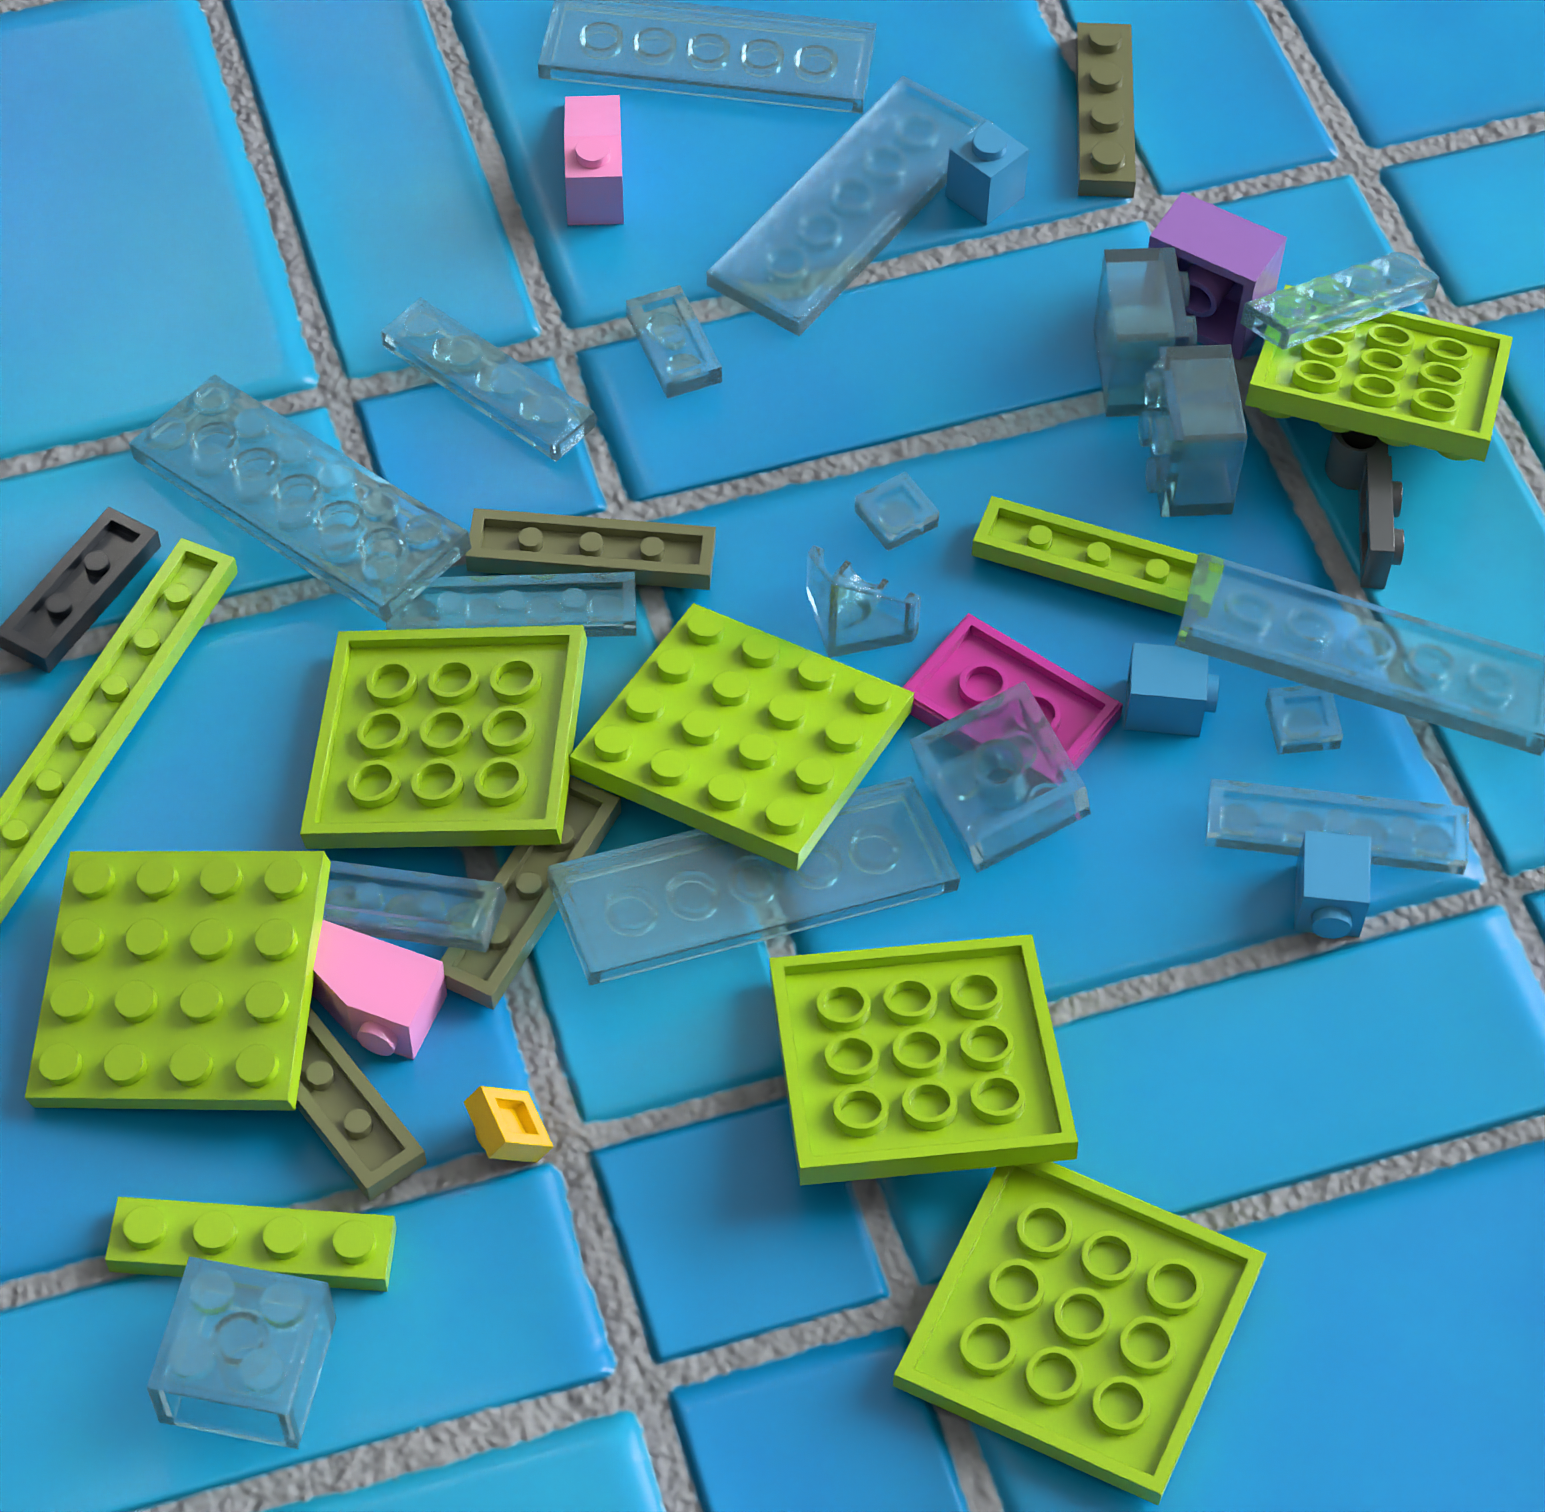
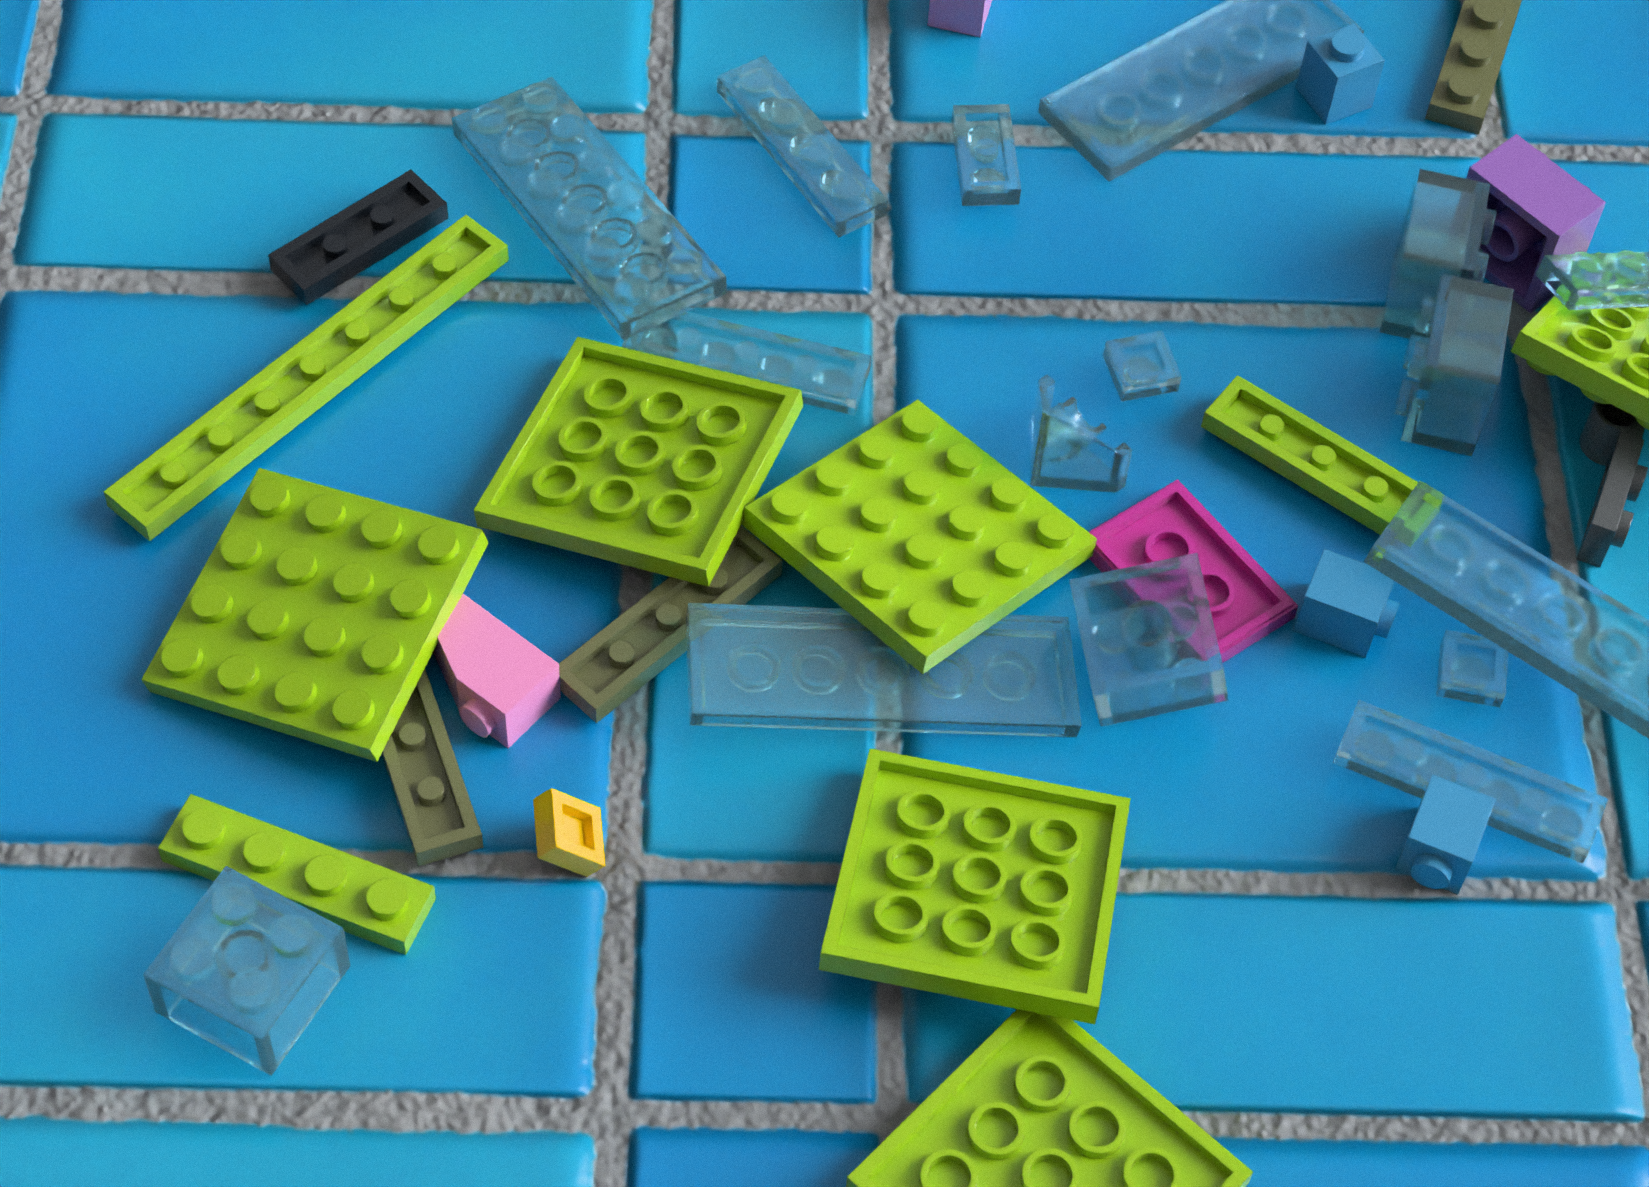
camera: 15 degrees right, 0 degrees up
(414, 905) = (551, 604): clear light blue plate -> none
(577, 544) = (819, 314): olive plate -> none

